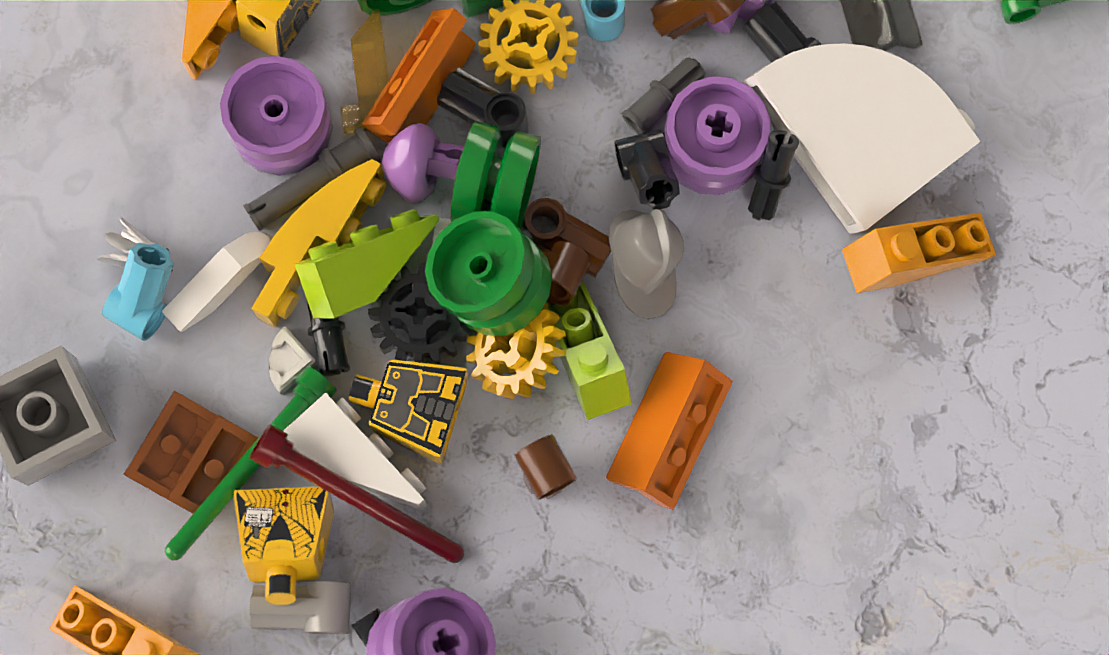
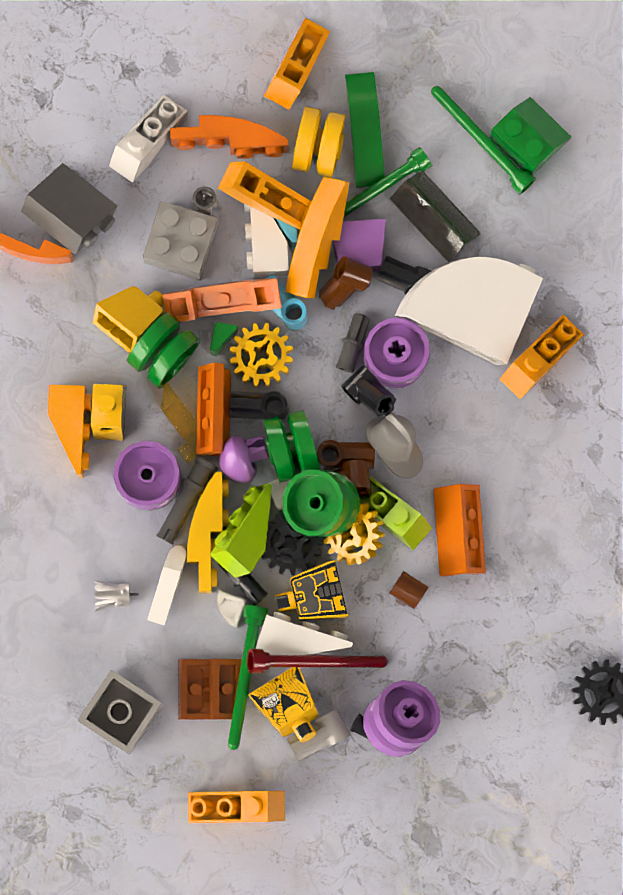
camera: 30 degrees left, 5 degrees up
(137, 298) = (131, 617): medium azure piece -> none
(772, 175) = (440, 359): black axle -> none

